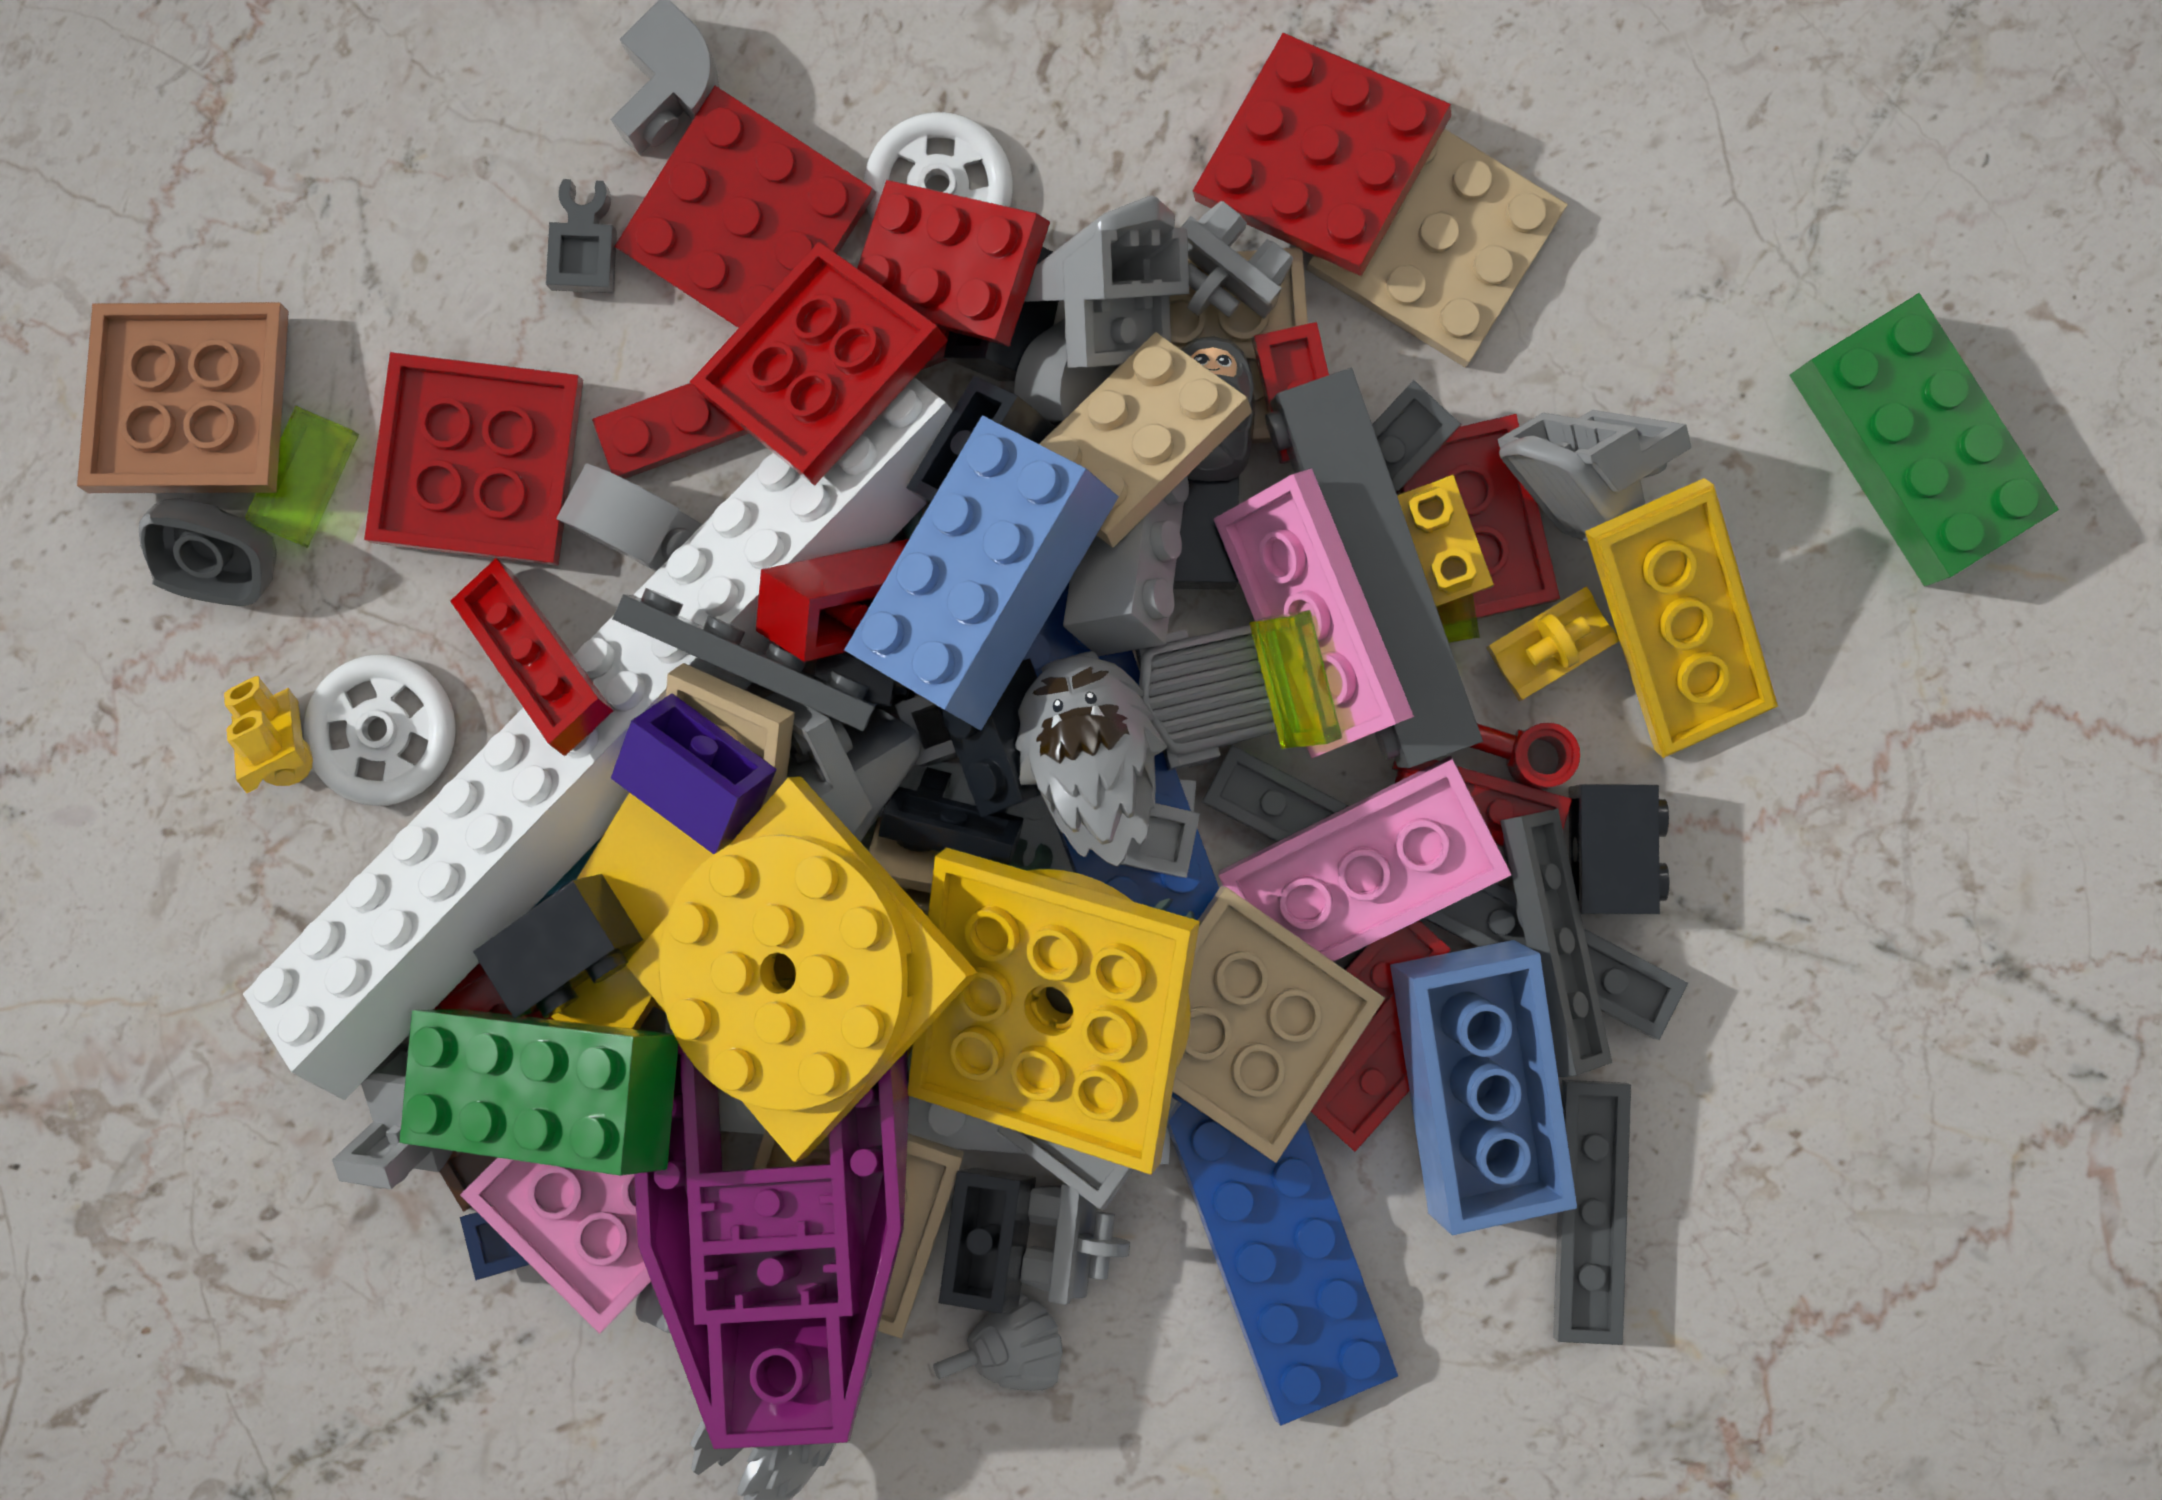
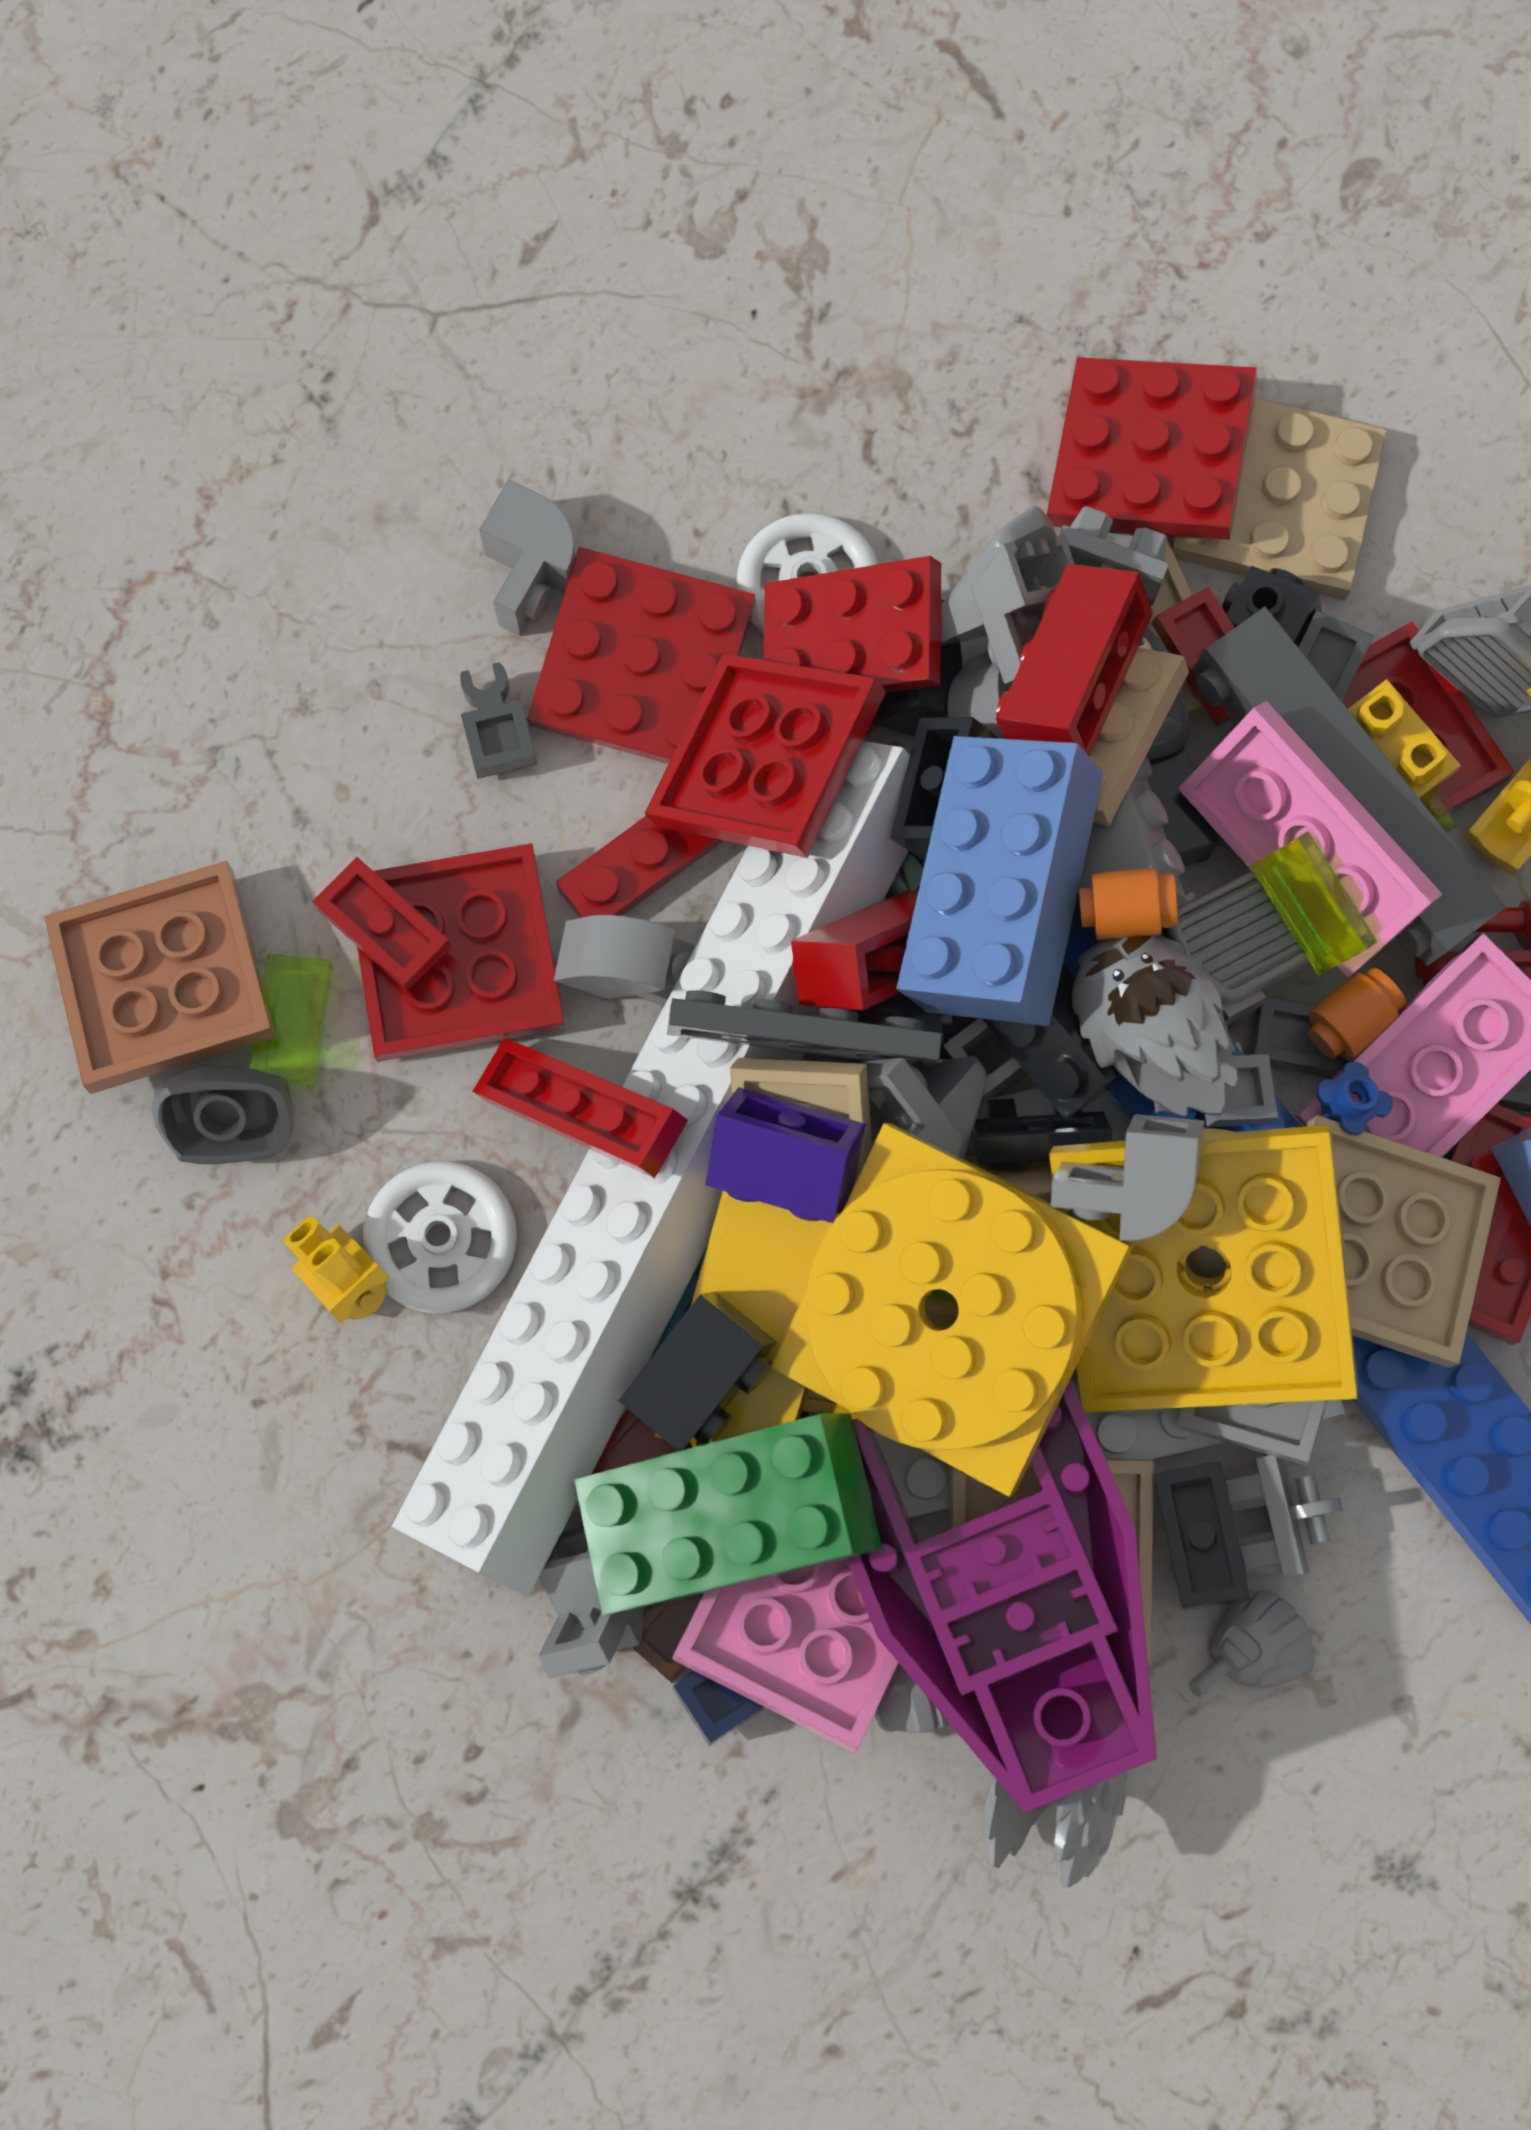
camera: 20 degrees left, 10 degrees down
(403, 414) = (381, 924): none -> red plate
(1005, 921) = (1152, 1186): none -> light grey brick
(1094, 637) = (1129, 903): none -> orange brick
(1133, 374) = (1076, 657): none -> red brick
(1251, 885) = (1340, 1107): none -> blue plate
(1306, 795) = (1355, 1014): none -> orange brick
(1380, 360) = (1280, 593): none -> black brick

